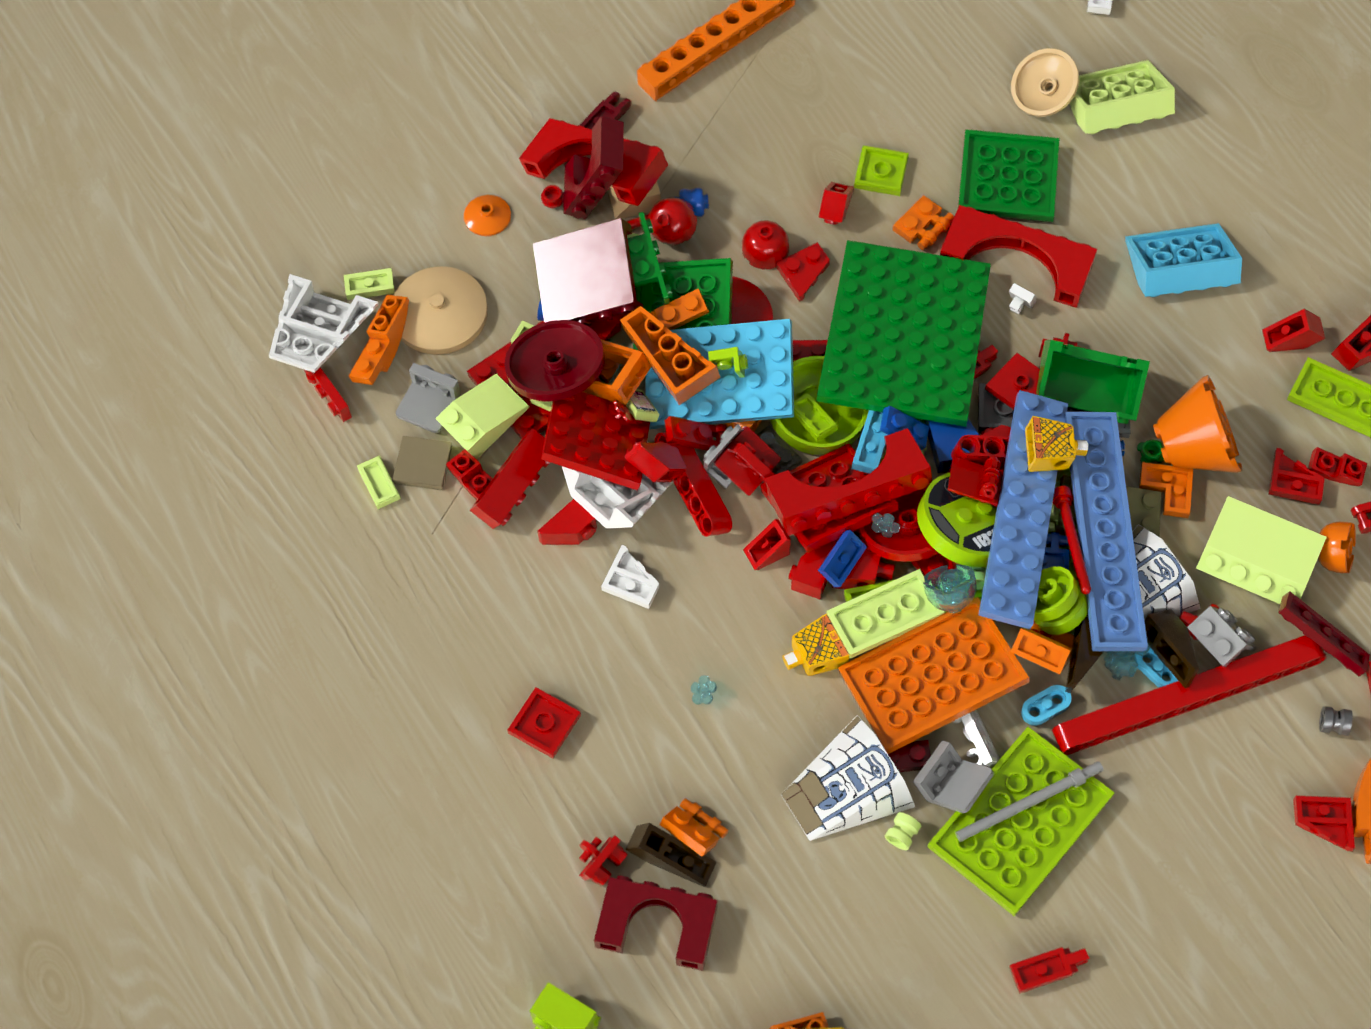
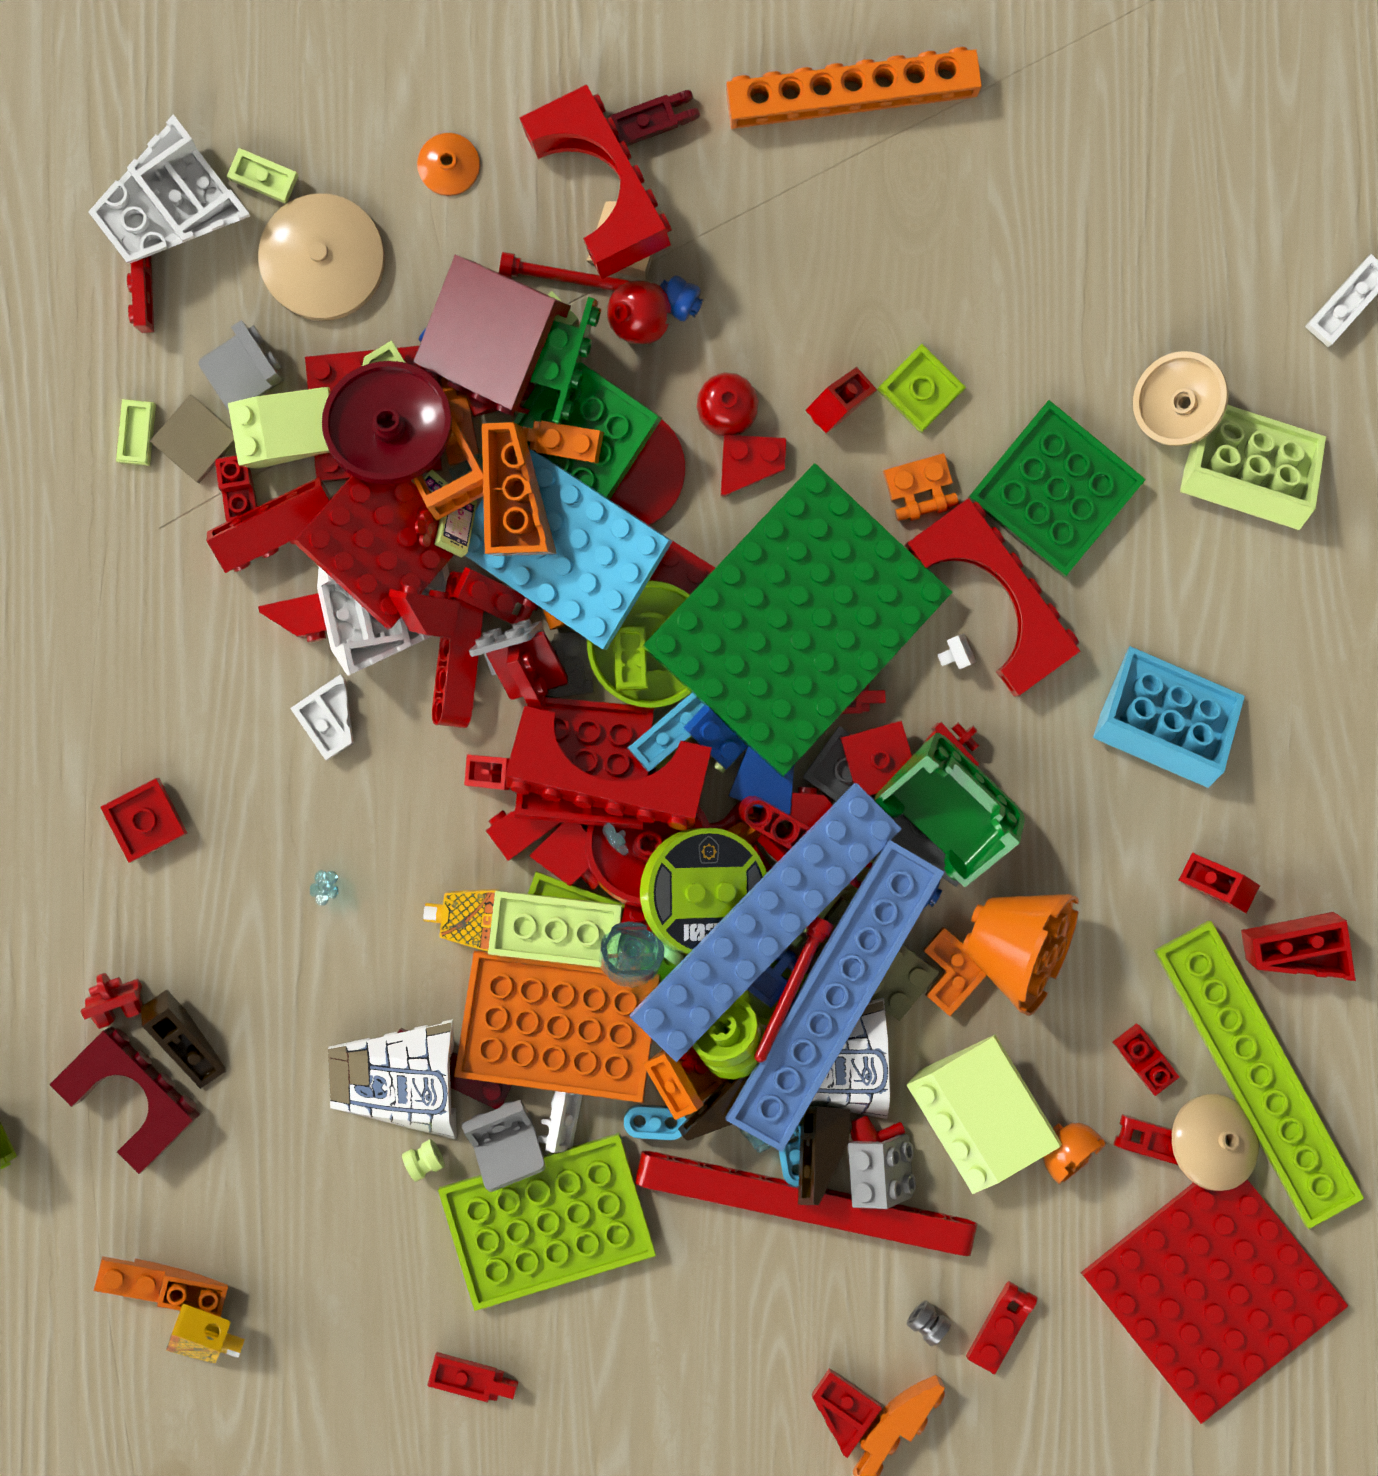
camera: 30 degrees right, 25 degrees up
(384, 340) = (233, 265): orange slope -> none
(552, 196) = (532, 188): red plate -> none
(591, 178) = (582, 197): dark red arch -> none
(691, 832) = (212, 1029): orange plate -> none
(727, 357) = (574, 546): lime bracket -> none
(842, 558) = (546, 847): blue plate -> none
(976, 480) = (736, 857): red hinge -> none
(1051, 445) = (838, 879): yellow torso -> none
(1075, 778) = (625, 1221): light grey bar -> none
(1150, 445) = (956, 921): green plate -> none
(1295, 480) = (1089, 1046): red wing -> none
(1324, 634) = (981, 1236): dark red plate -> none

